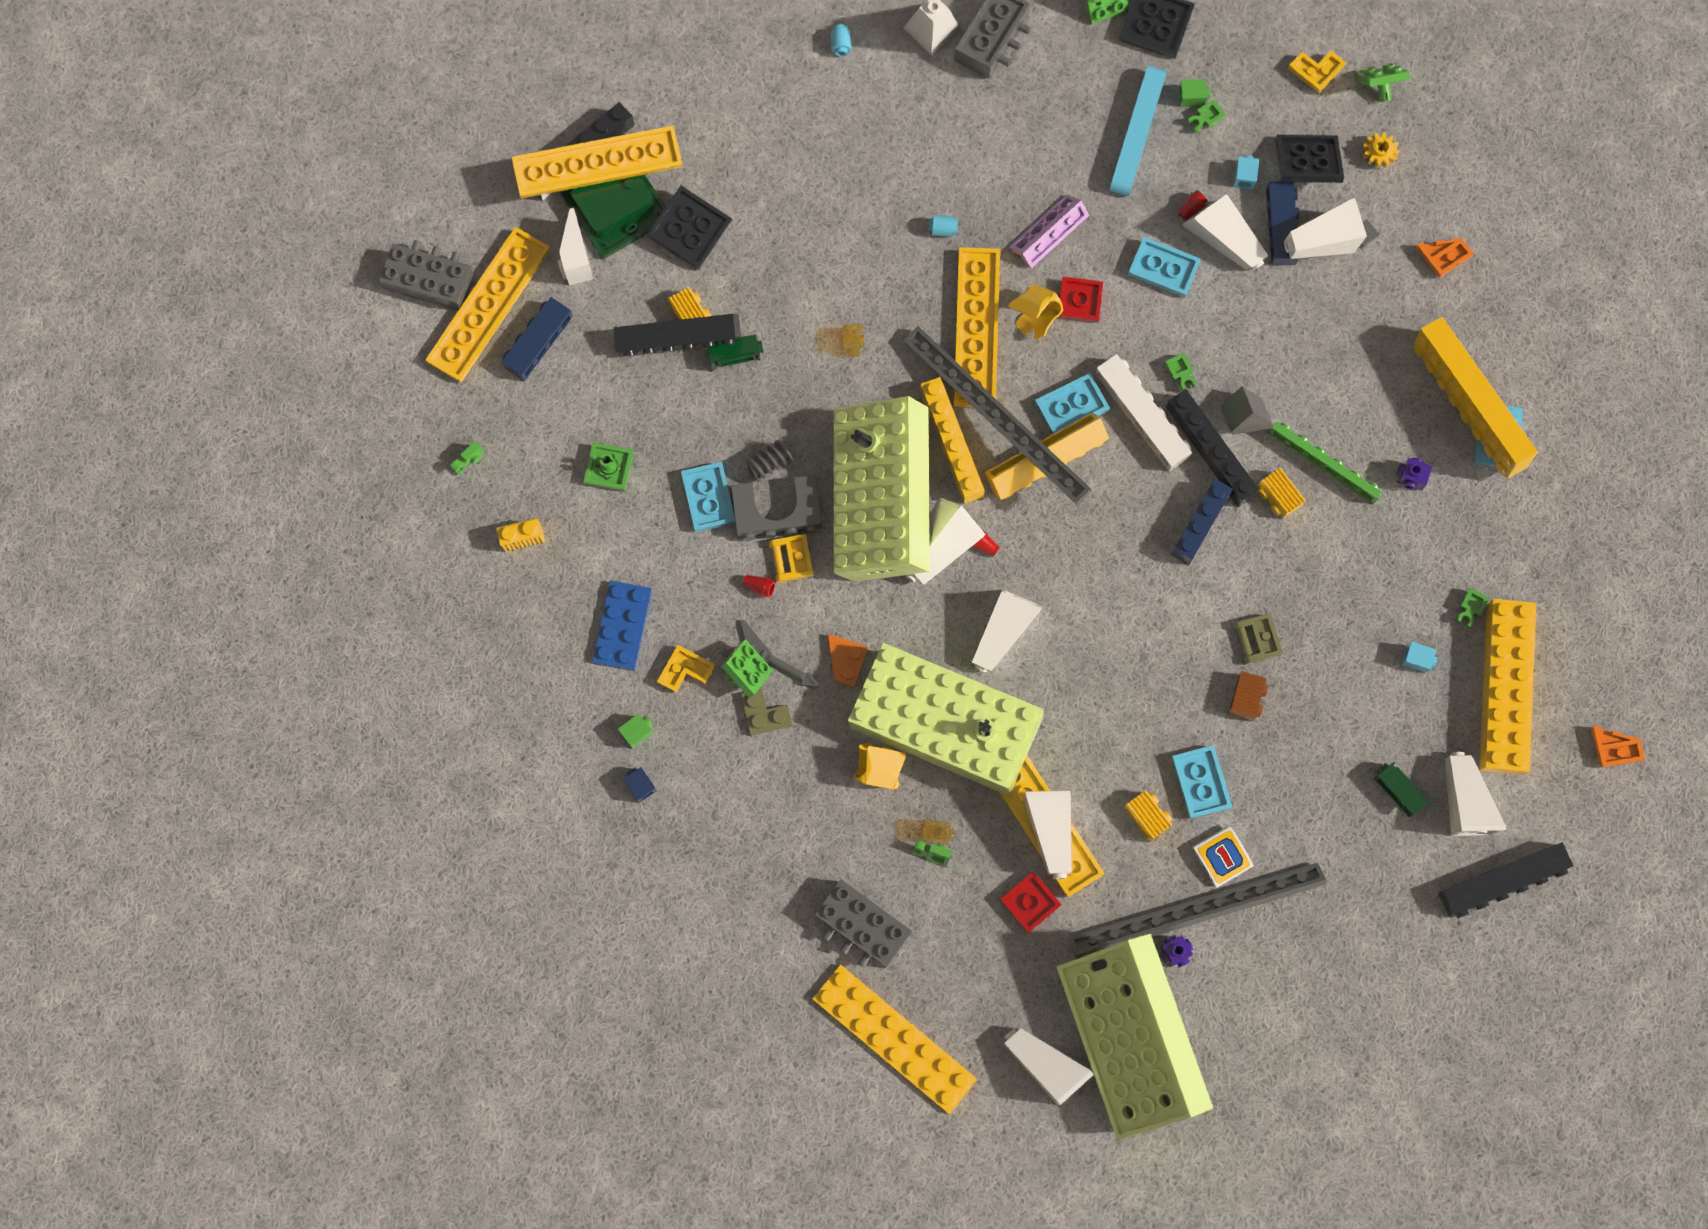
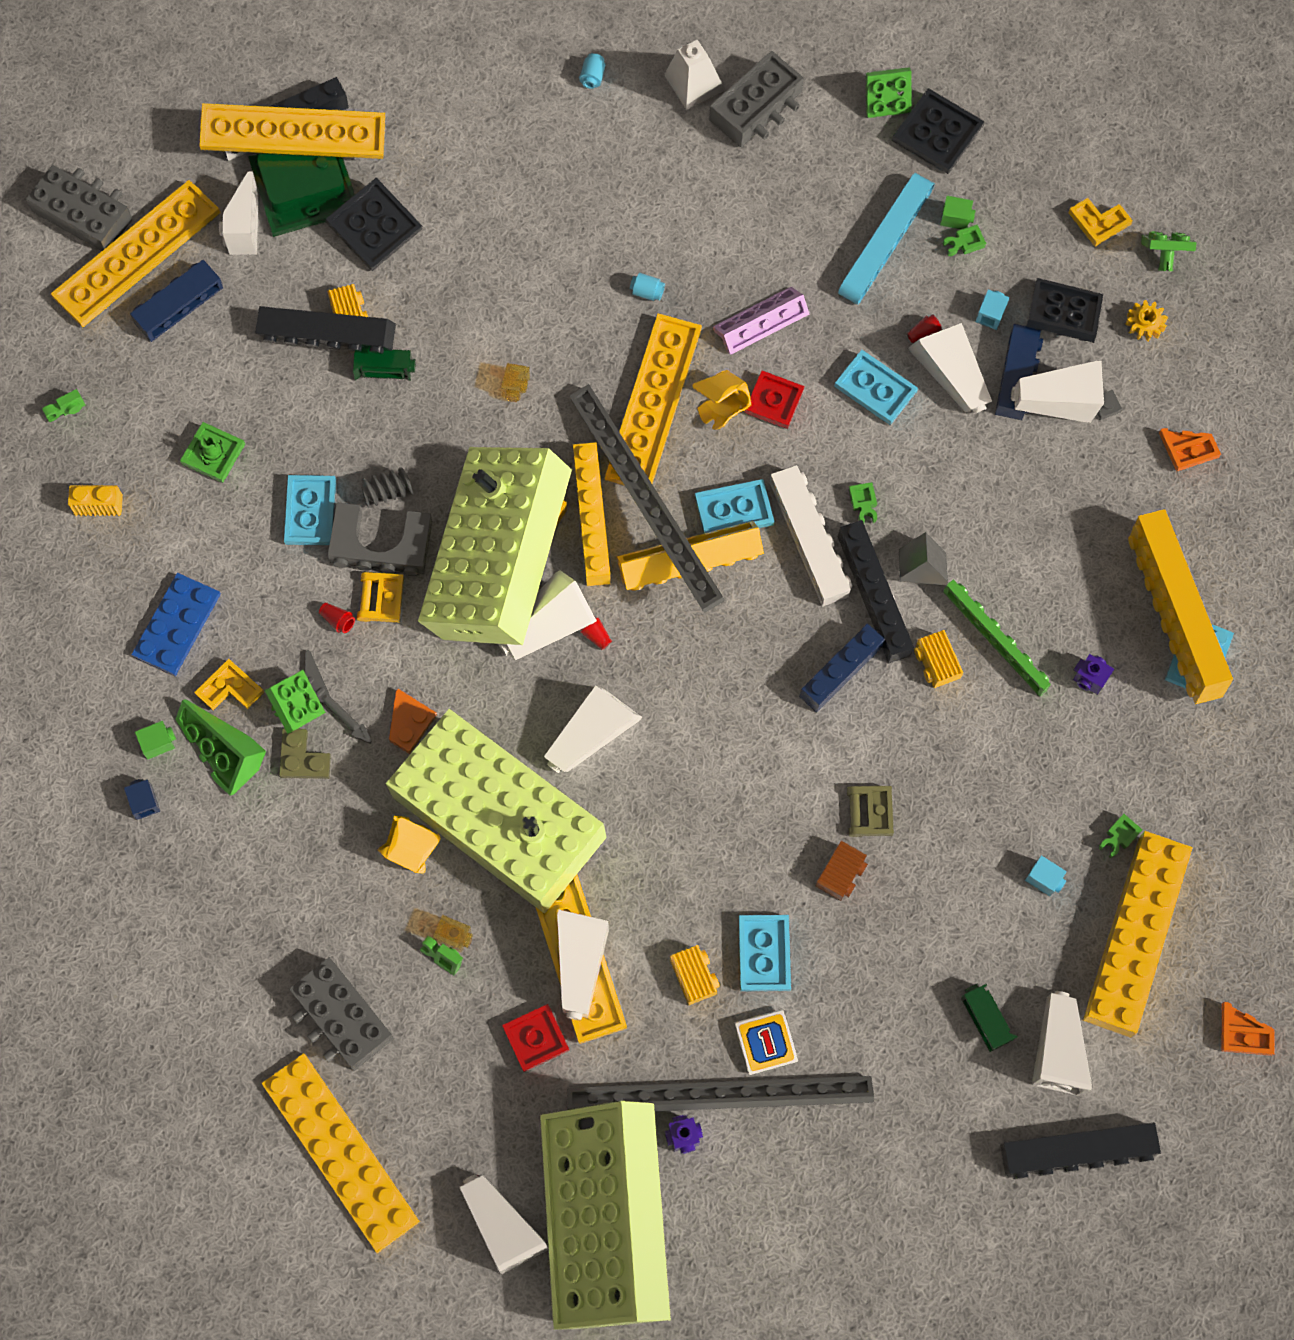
camera: 10 degrees right, 5 degrees down
(700, 724) = (228, 750): none -> bright green wedge

